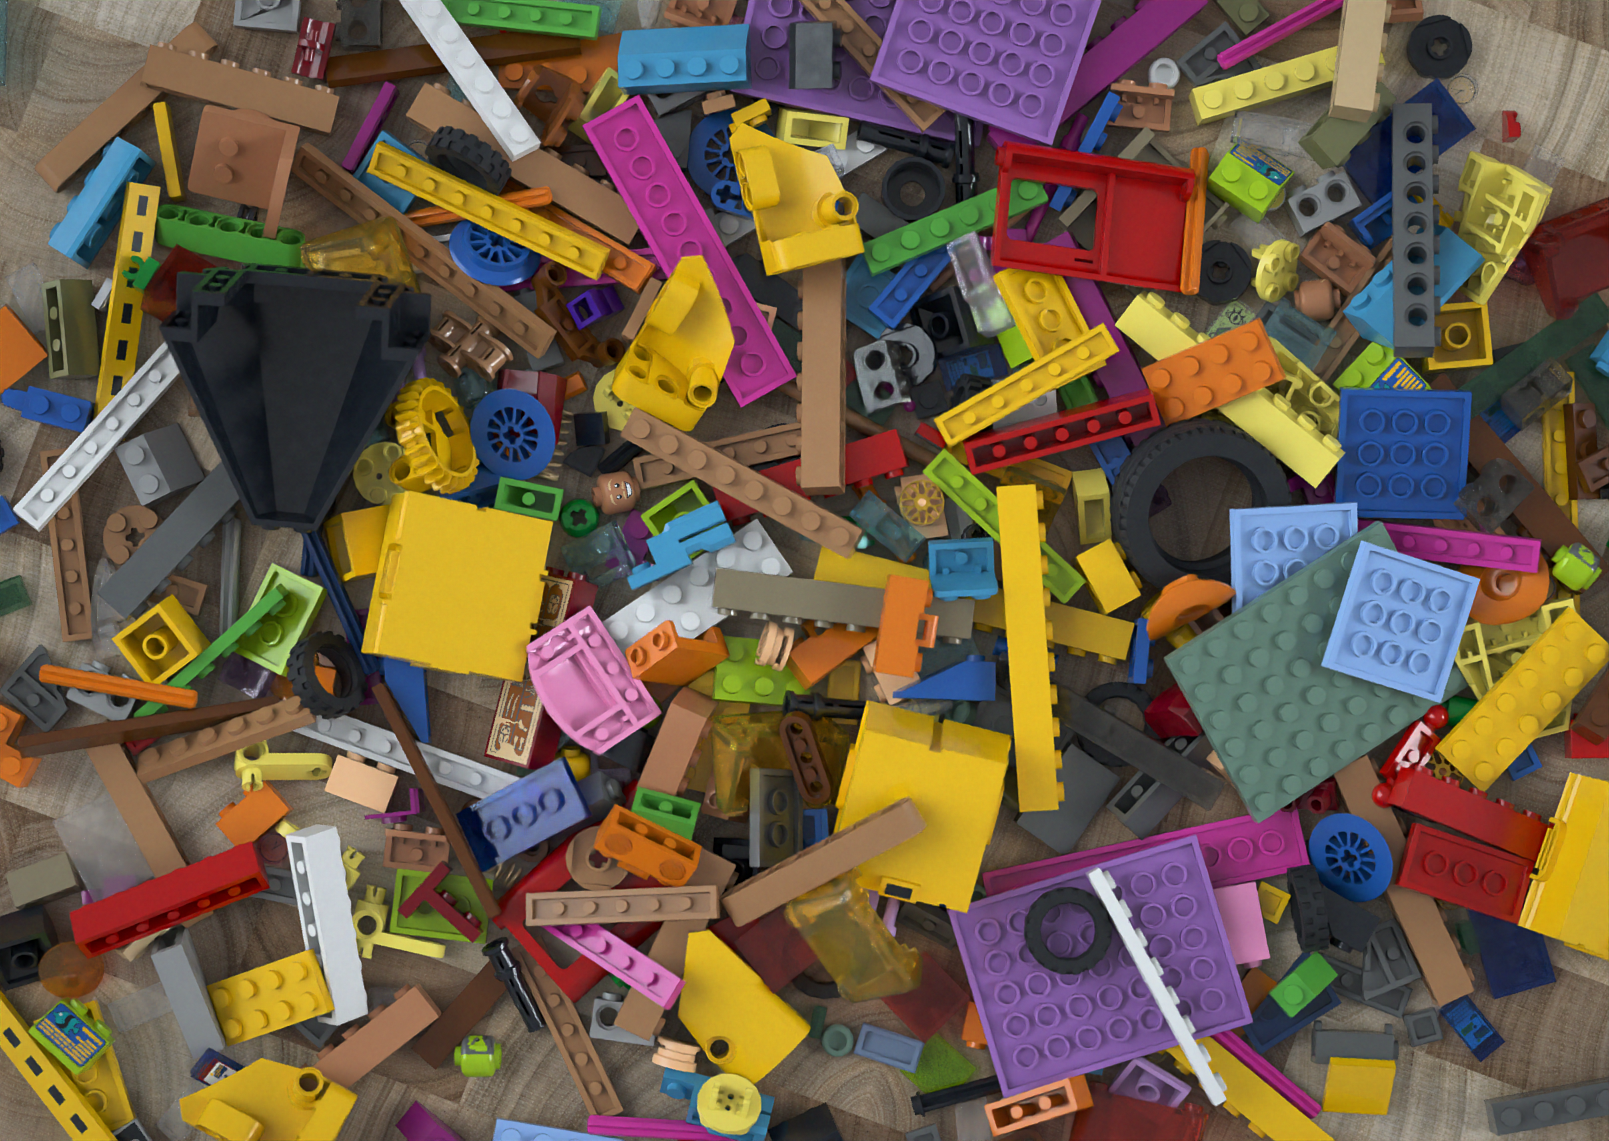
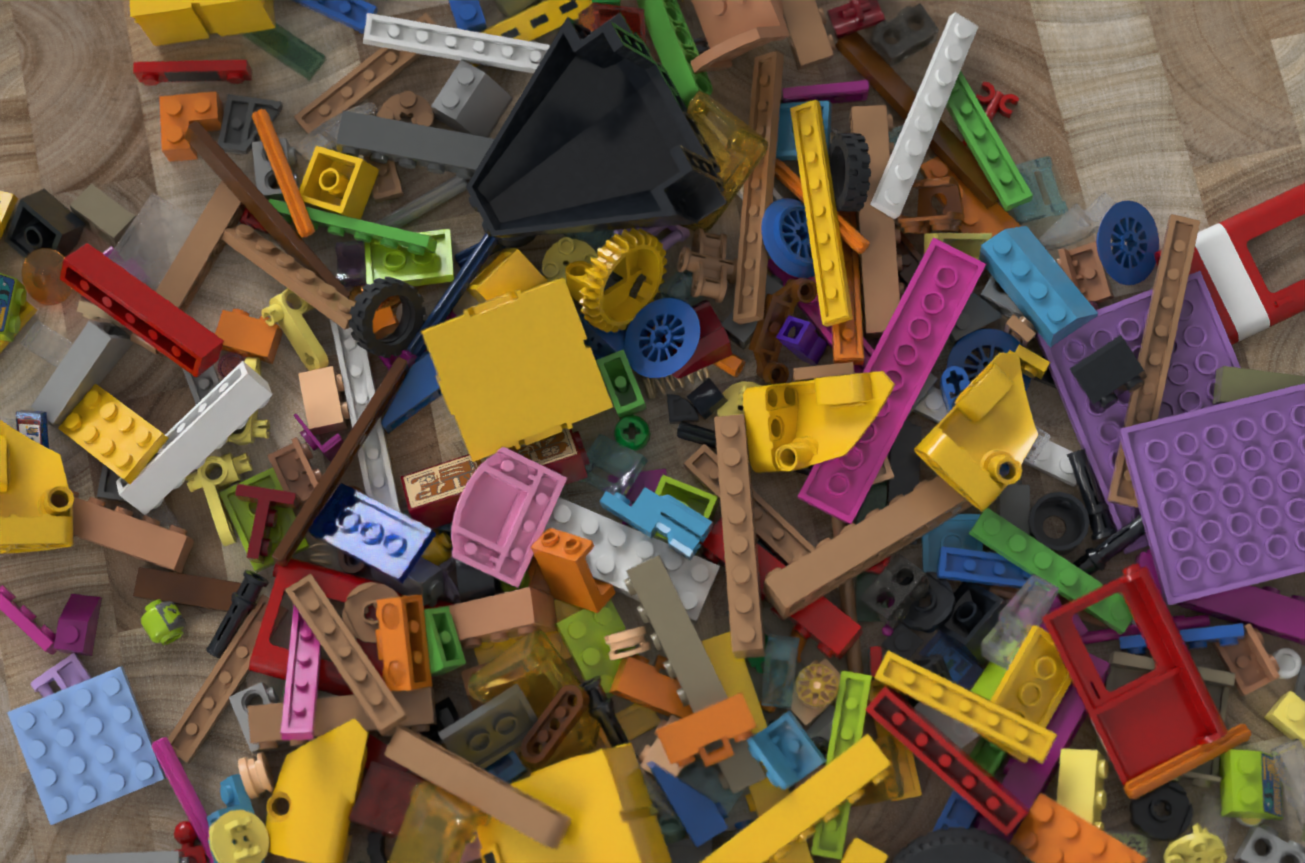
camera: 65 degrees right, 10 degrees down
(616, 492) = (669, 448): nougat head -> none
(811, 128) = (1051, 415): light yellow slope -> none
(1092, 505) = (905, 827): light yellow slope -> none

